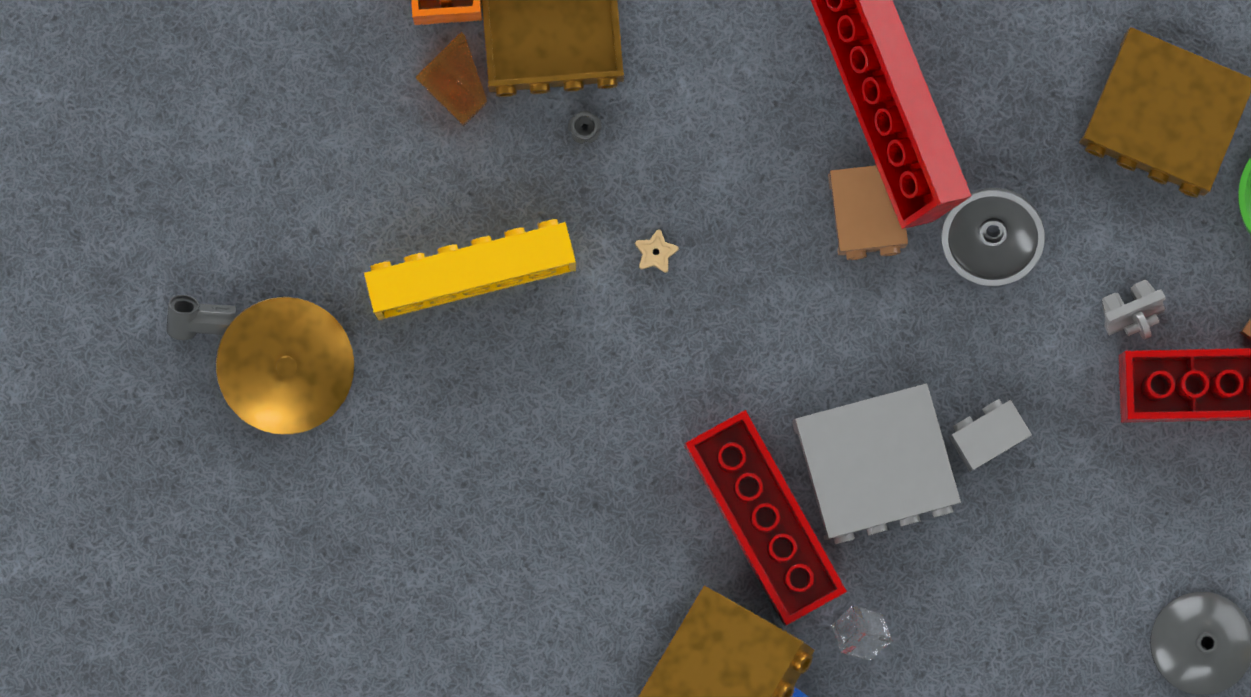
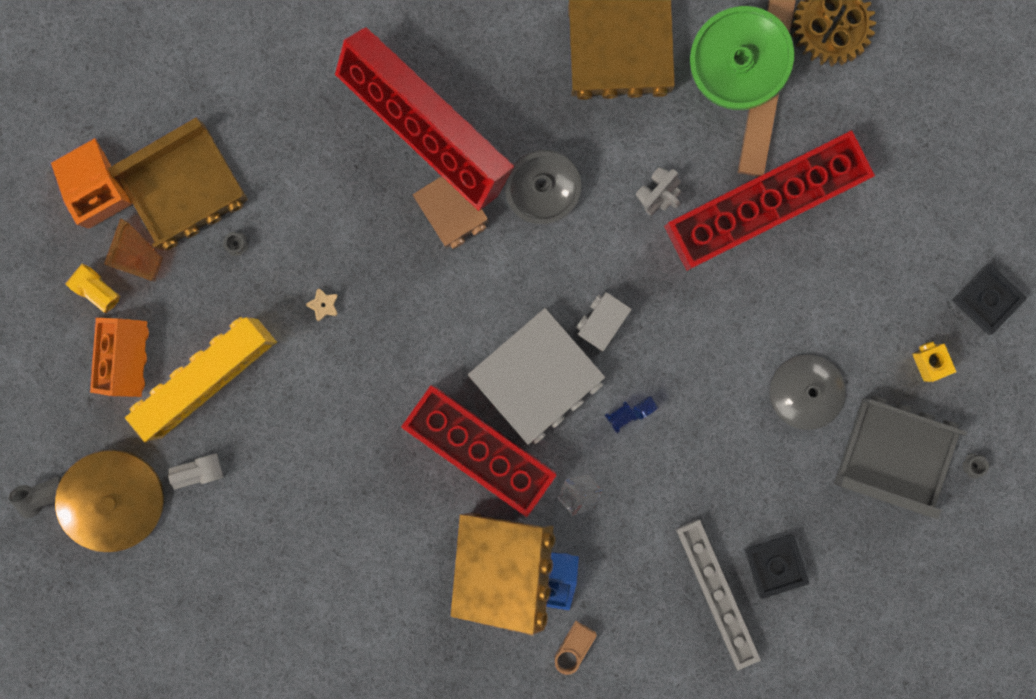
camera: 20 degrees left, 5 degrees up
(378, 196) = (119, 357): none -> orange slope
(384, 93) = (88, 284): none -> yellow piece
(413, 382) = (201, 470): none -> light grey piece
(965, 562) = (625, 414): none -> clear blue connector

